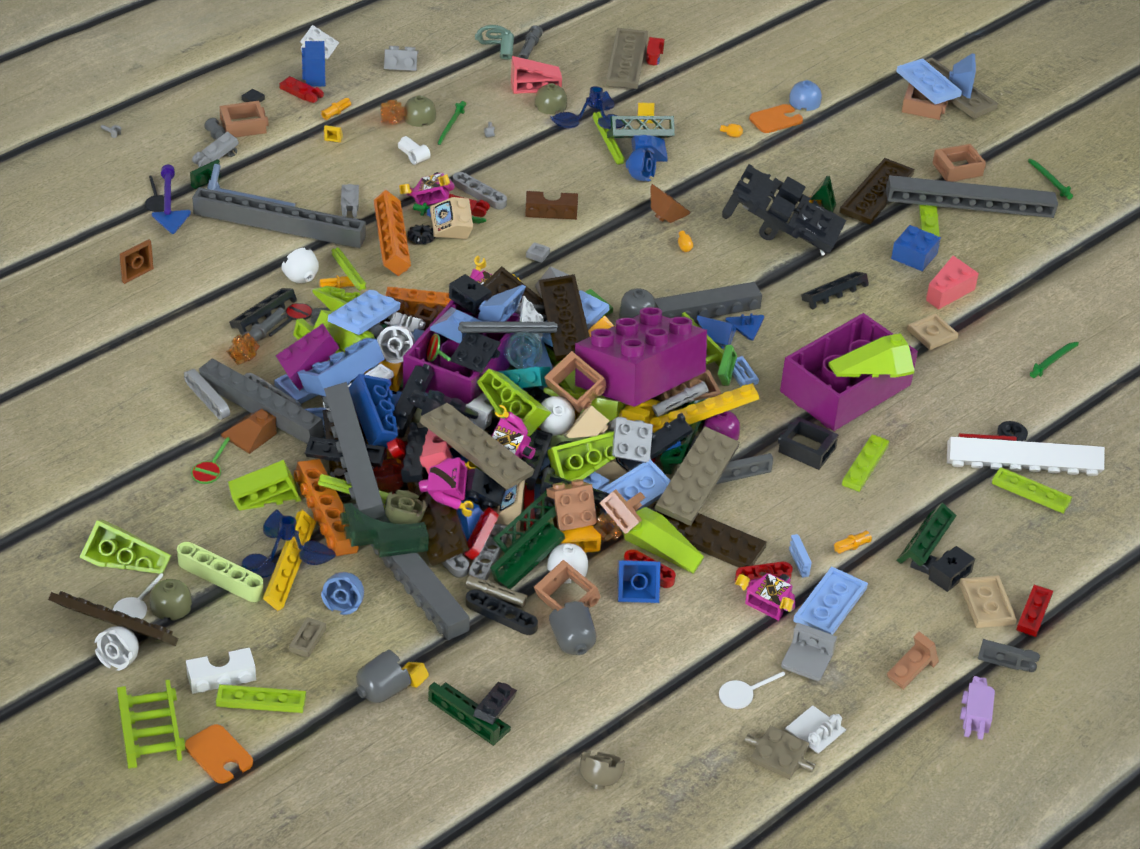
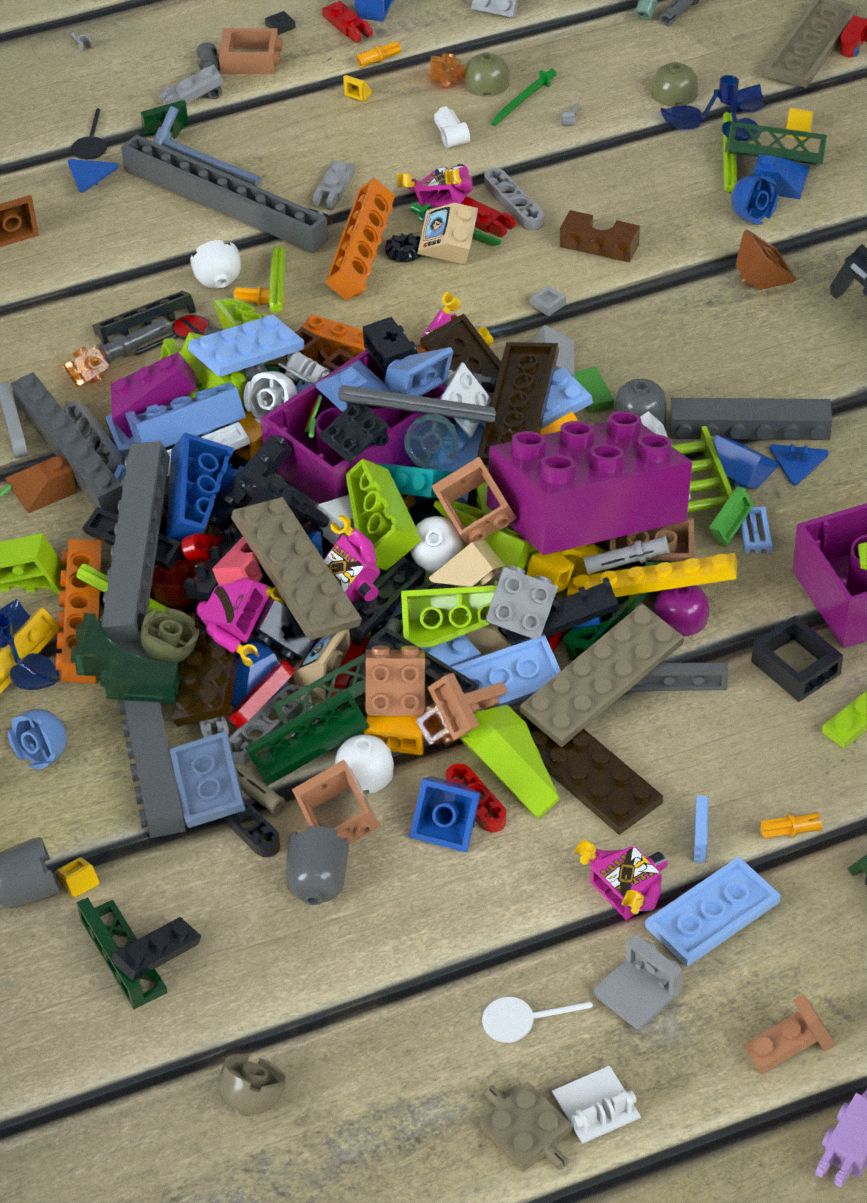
camera: 25 degrees right, 5 degrees up
(167, 173) = (118, 109): dark purple piece -> none
(475, 592) = (207, 779): none -> sand blue plate
(530, 76) = (658, 45): coral wedge -> none
(685, 241) = (764, 321): light orange cylinder -> none
(778, 568) = (657, 837): red beam -> none

